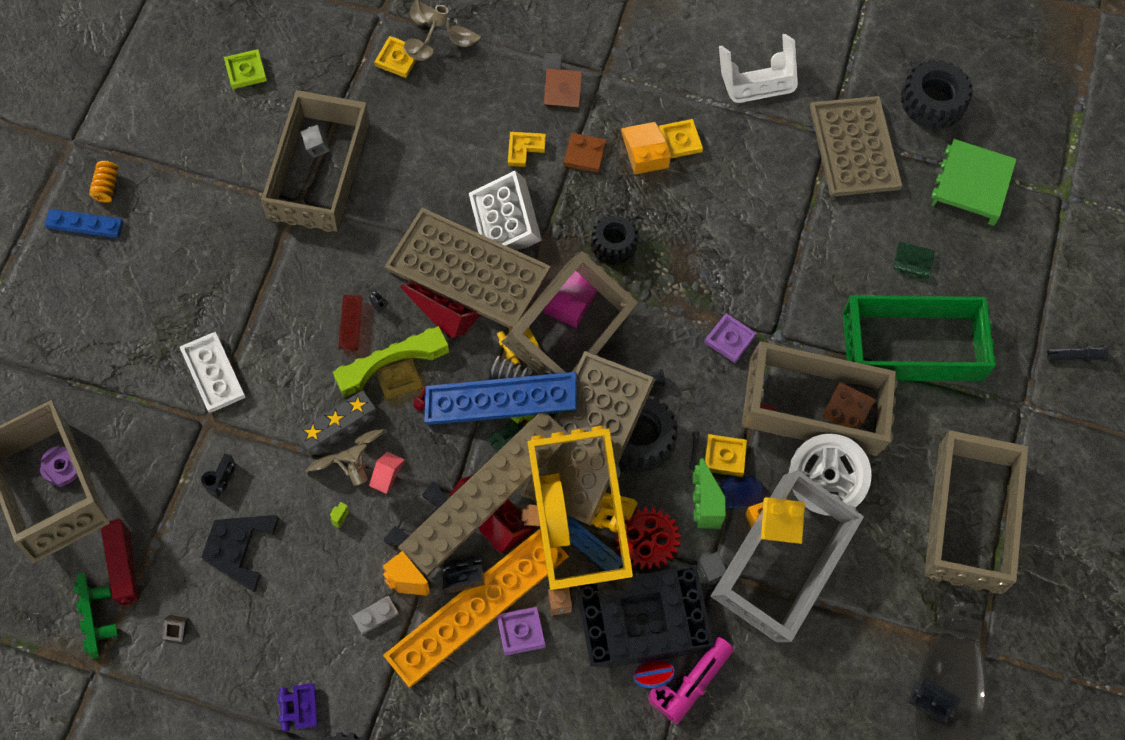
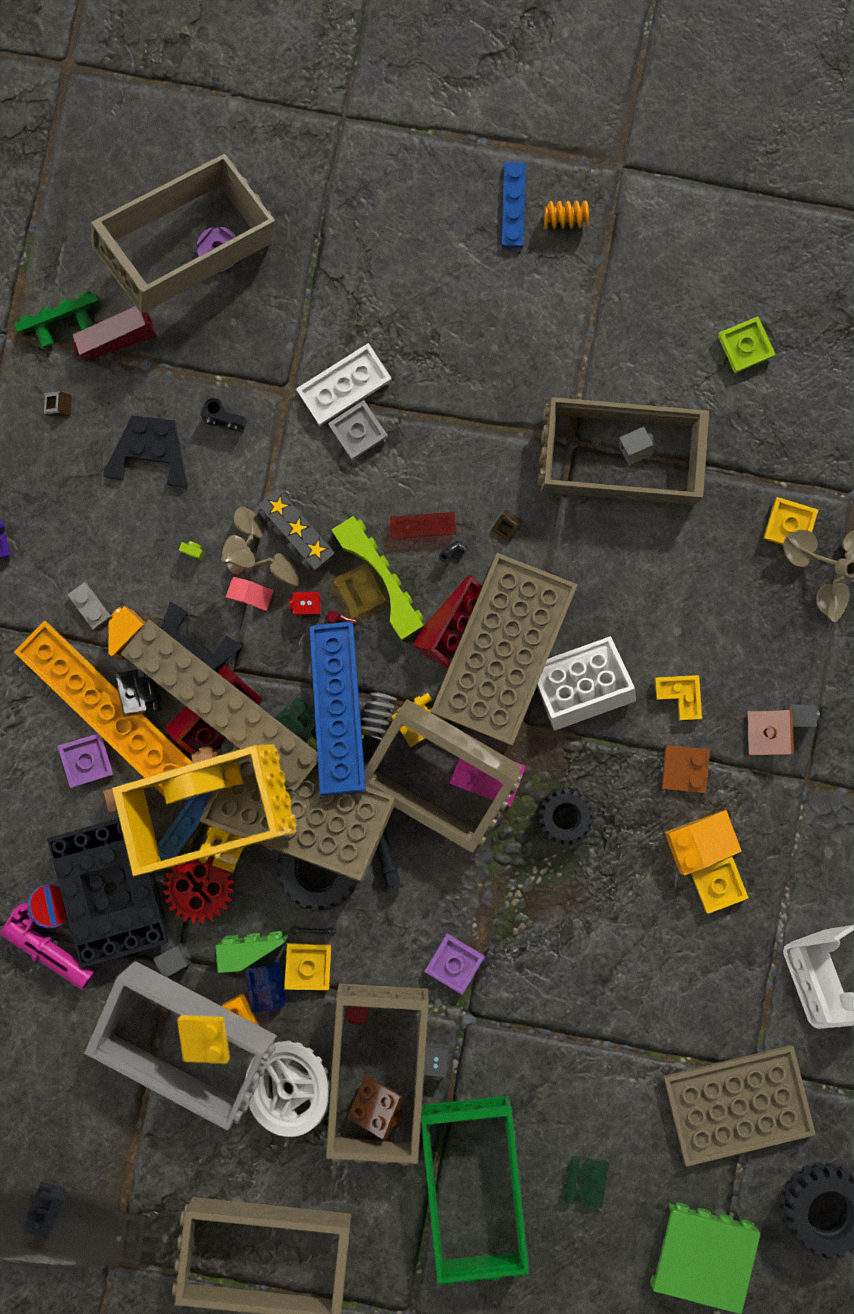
camera: 85 degrees right, 20 degrees up
(255, 365) = (357, 430): none -> light grey plate
(362, 259) = (506, 525): none -> dark brown slope
(404, 422) = (305, 604): none -> red brick

